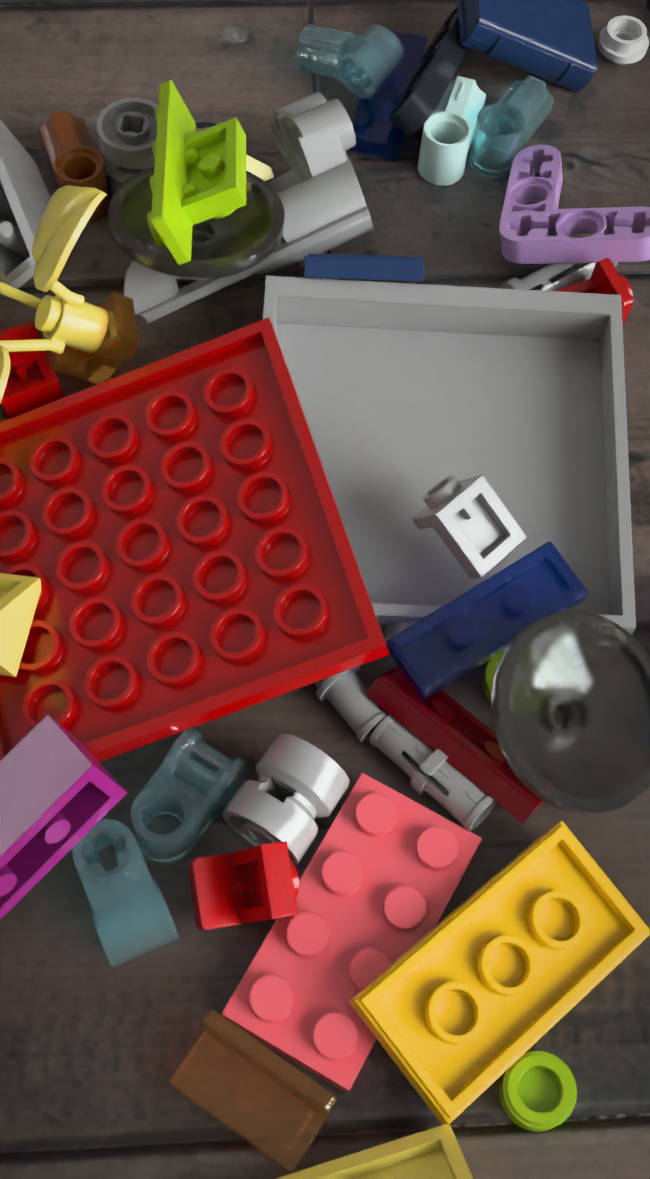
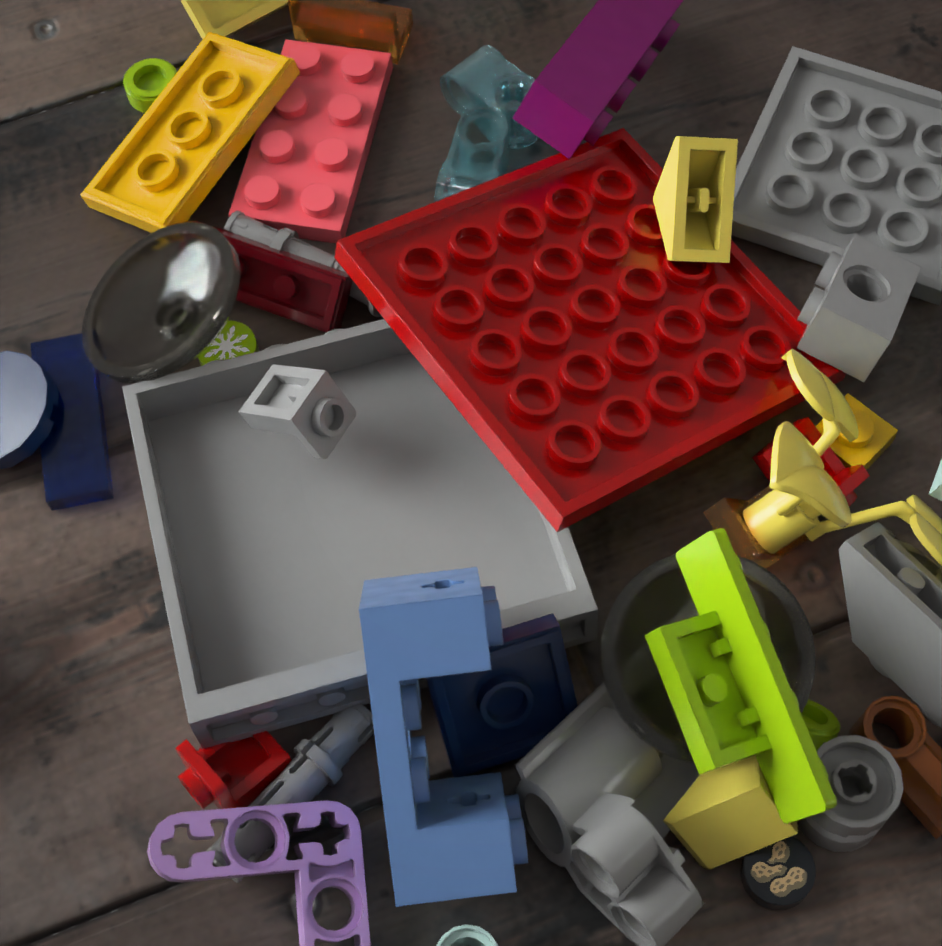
camera: 170 degrees right, 0 degrees up
(243, 886) = (410, 127): red bracket -> none
(291, 791) = (392, 176): light grey wheel -> none
(421, 215) = (443, 833): none -> medium blue plate
(484, 620) = (262, 336): clear blue tile -> none

